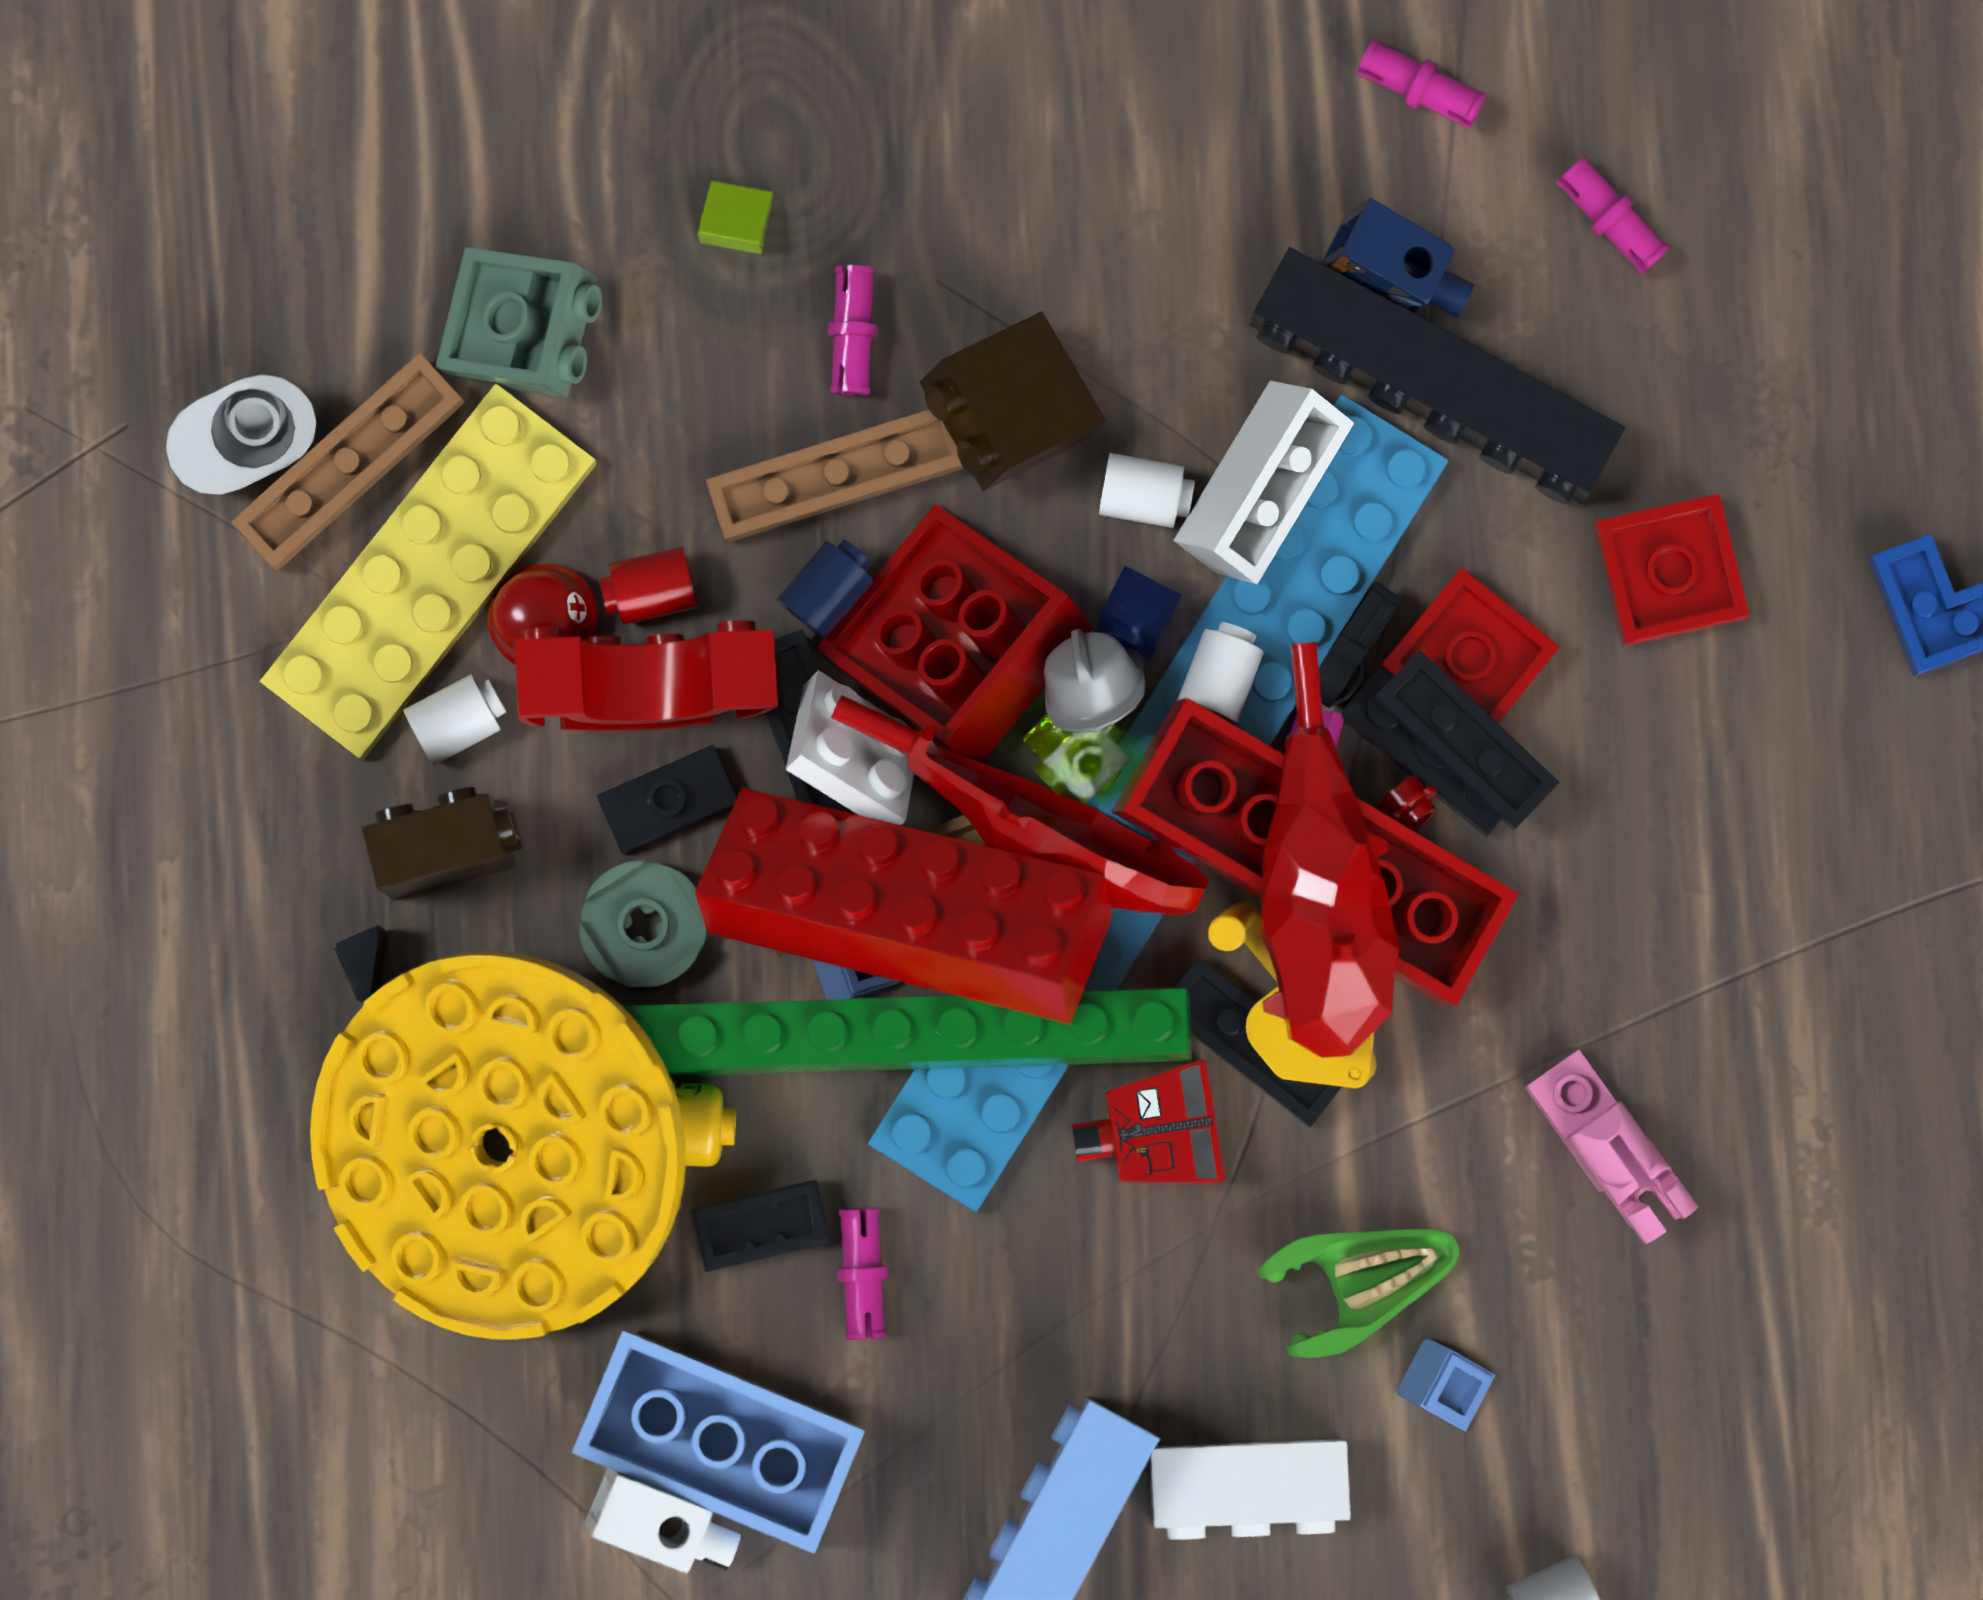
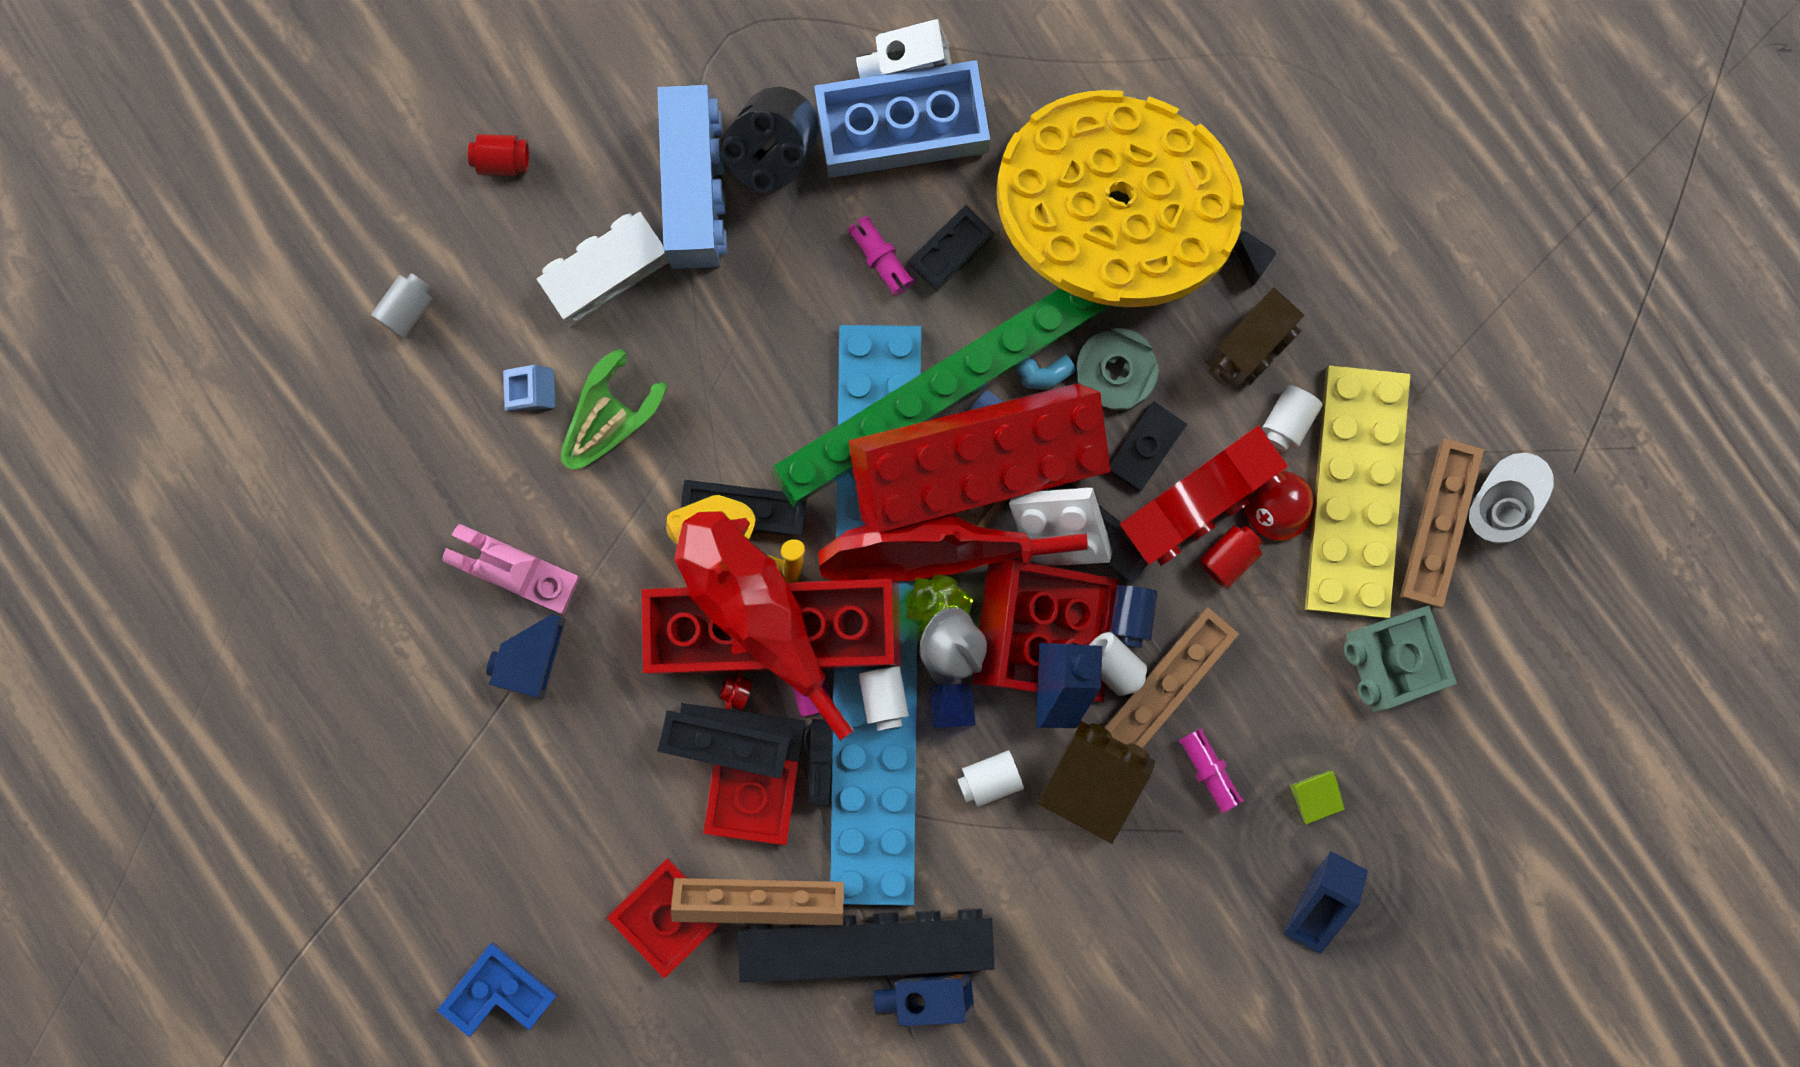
camera: 150 degrees right, 0 degrees up
(705, 1122) = (1019, 281): yellow head -> none
(740, 972) = (1045, 377): none -> medium azure arm
(810, 78) = (1327, 902): none -> dark blue slope
(892, 537) = (1120, 666): none -> white brick
(917, 1513) = (771, 139): none -> black cylinder
(972, 548) = (1066, 683): none -> dark blue slope
(1157, 1130) = (767, 426): red torso -> none
(1264, 481) = (926, 824): white brick -> none
(1541, 513) = (757, 901): none -> medium nougat plate
(1660, 1013) = (527, 658): none -> dark blue slope

